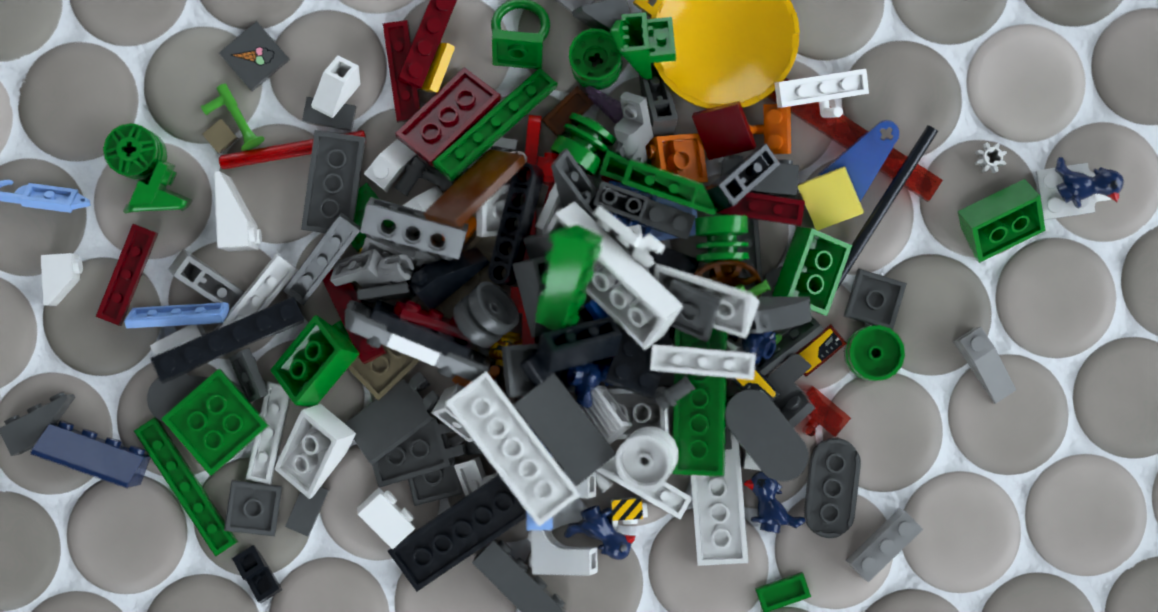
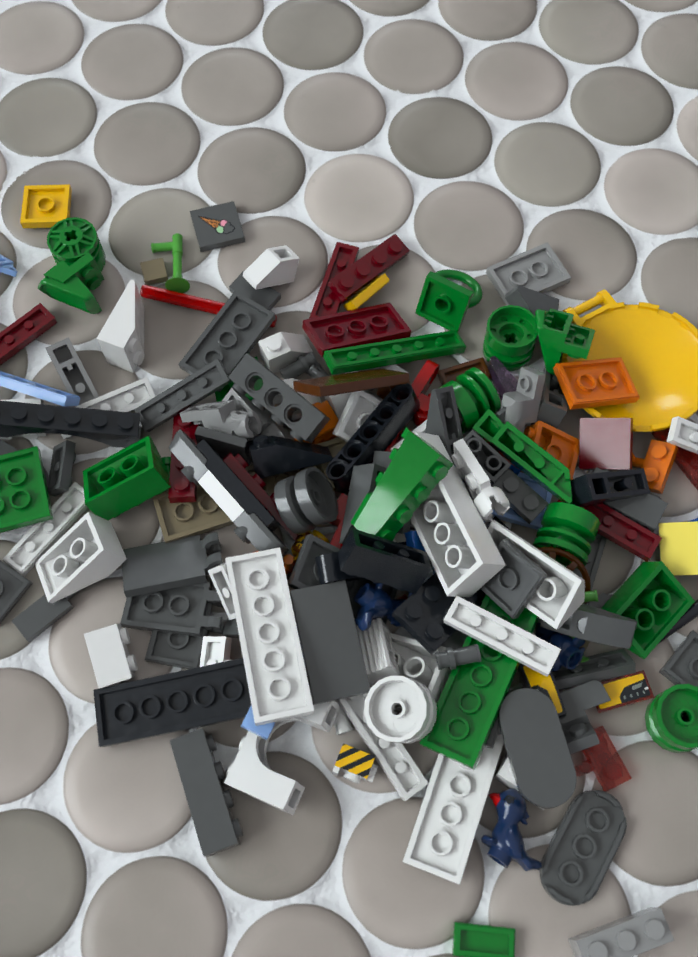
camera: 25 degrees right, 20 degrees down
(72, 113) = (45, 205): none -> yellow plate
(599, 526) = (317, 767): dark blue animal -> none
(694, 74) = (595, 383): none -> orange tile

